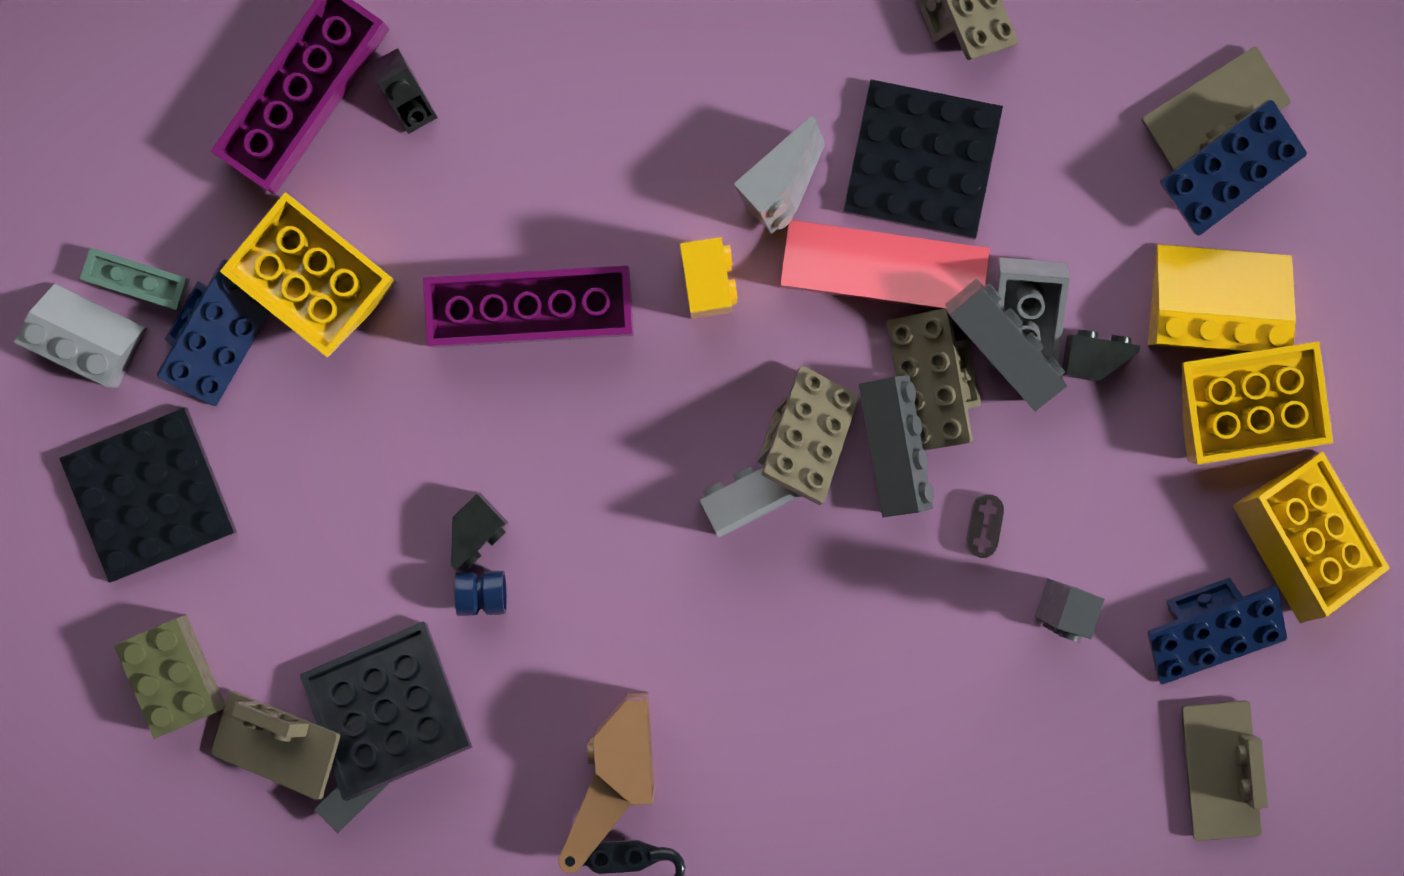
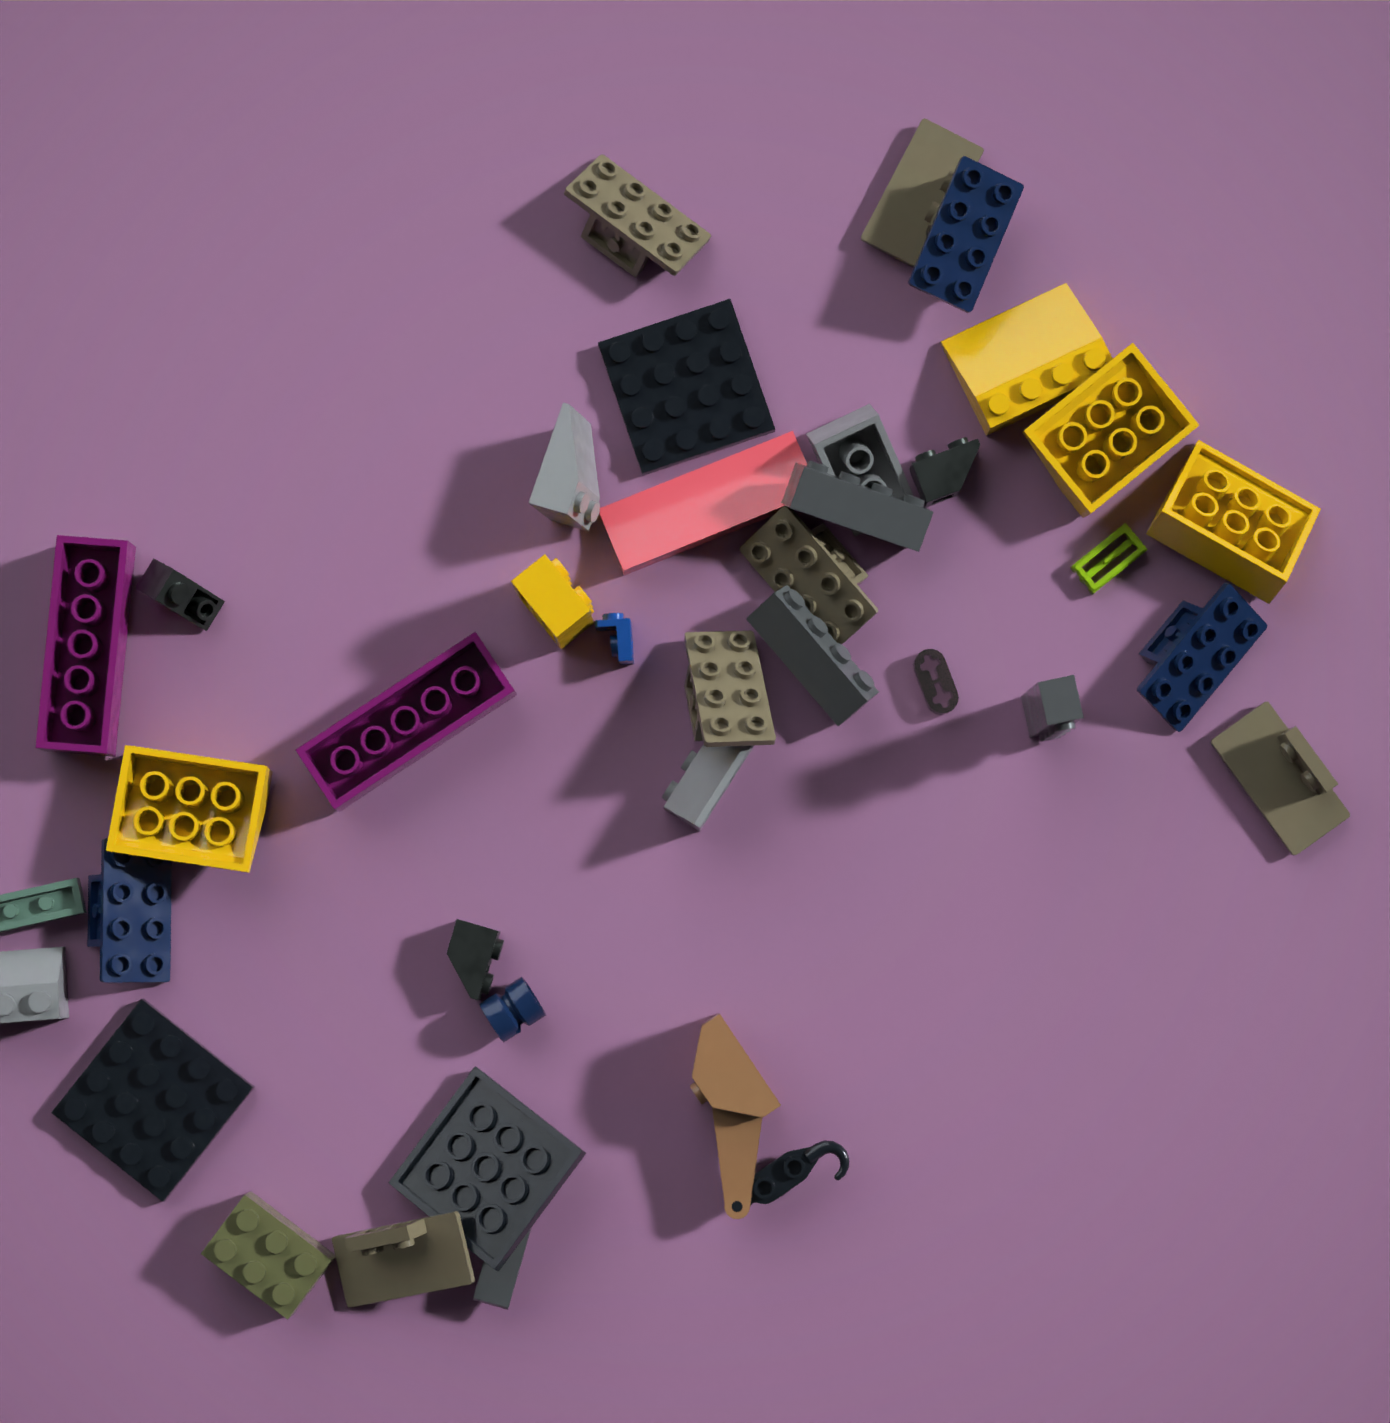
camera: 35 degrees left, 5 degrees down
(745, 343) = (622, 642): none -> blue bracket
(1159, 510) = (1085, 577): none -> lime tile

